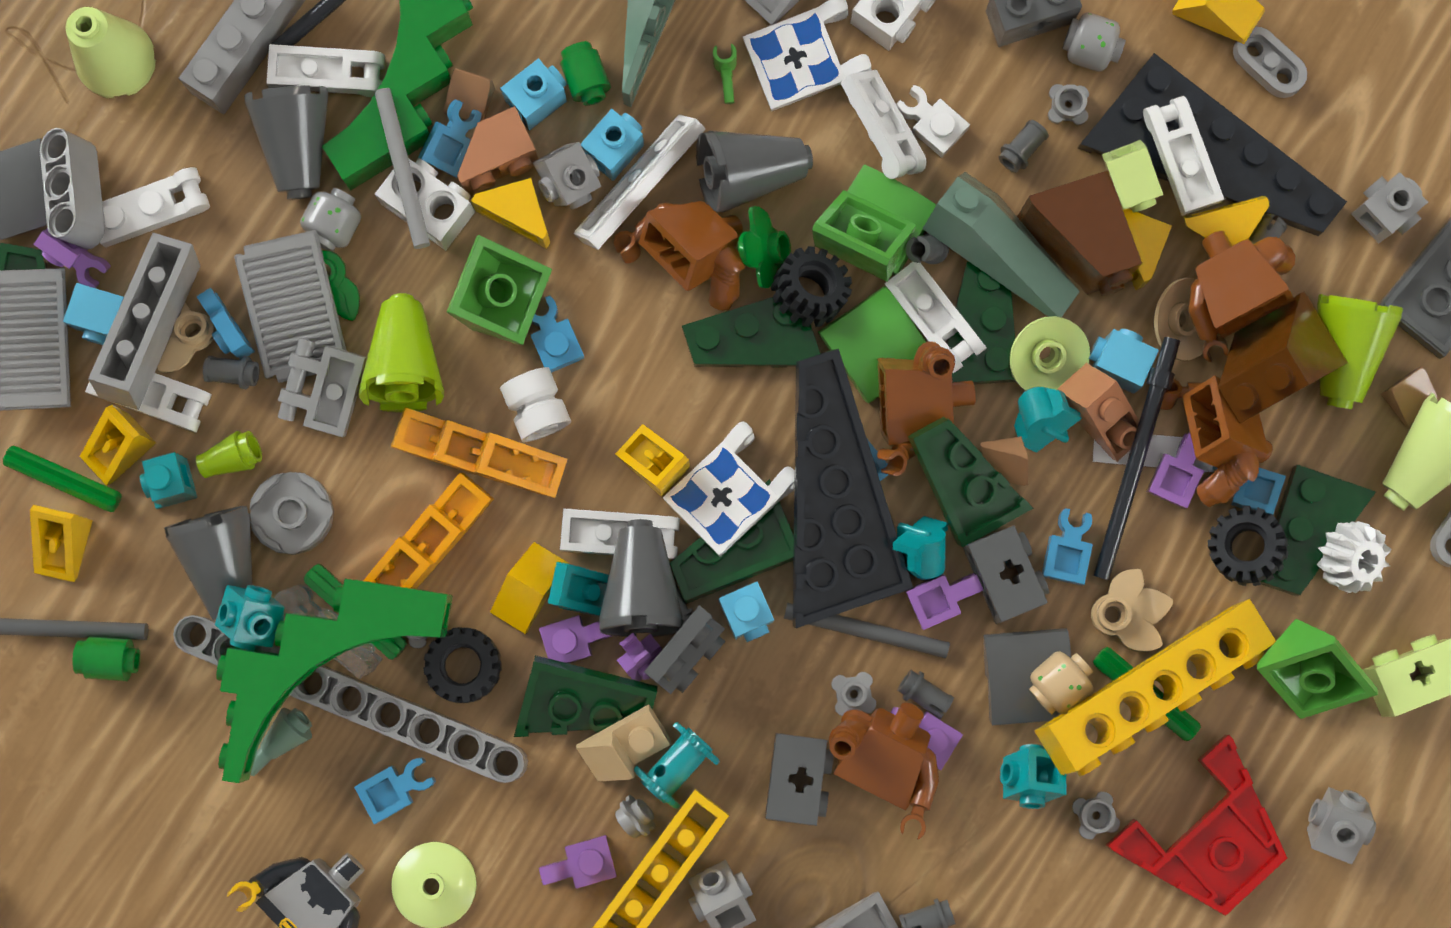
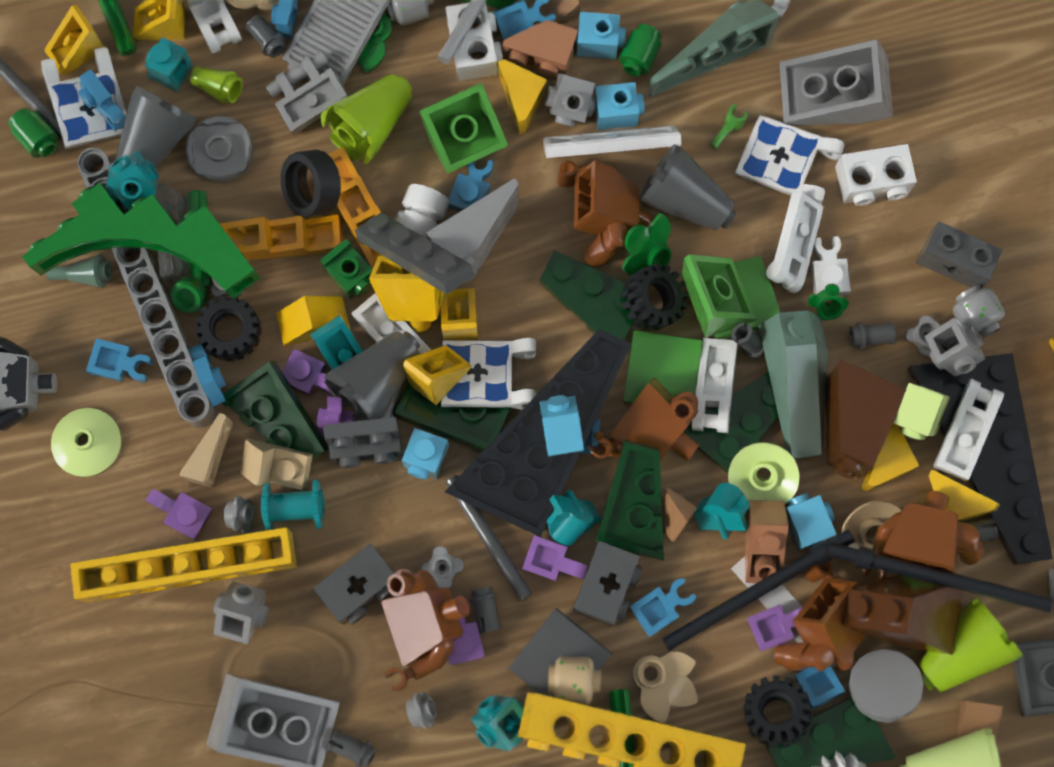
camera: 45 degrees right, 5 degrees down
(130, 586) = (75, 119): none -> white flag
(133, 570) = (96, 95): none -> dark azure plate
(397, 670) = (188, 295): none -> green tile
(423, 451) = (326, 183): none -> black tyre
(494, 724) = (209, 377): none -> dark azure plate
(501, 513) = (338, 260): none -> green brick
(559, 800) = (206, 458): none -> tan slope
(574, 445) = (414, 253): none -> dark grey plate
(595, 479) = (405, 295): none -> yellow torso
(600, 393) = (478, 227): none -> light grey slope
(689, 530) = (435, 372): none -> yellow slope
(849, 476) = (561, 425): none -> medium azure brick
(955, 831) = (421, 710): none -> light grey plate
(962, 152) = (830, 310): none -> green plate
(1099, 101) = (955, 347): none -> light grey brick
(1207, 347) = (866, 558): none -> black bar
(1314, 439) = (886, 685): none -> light grey tile

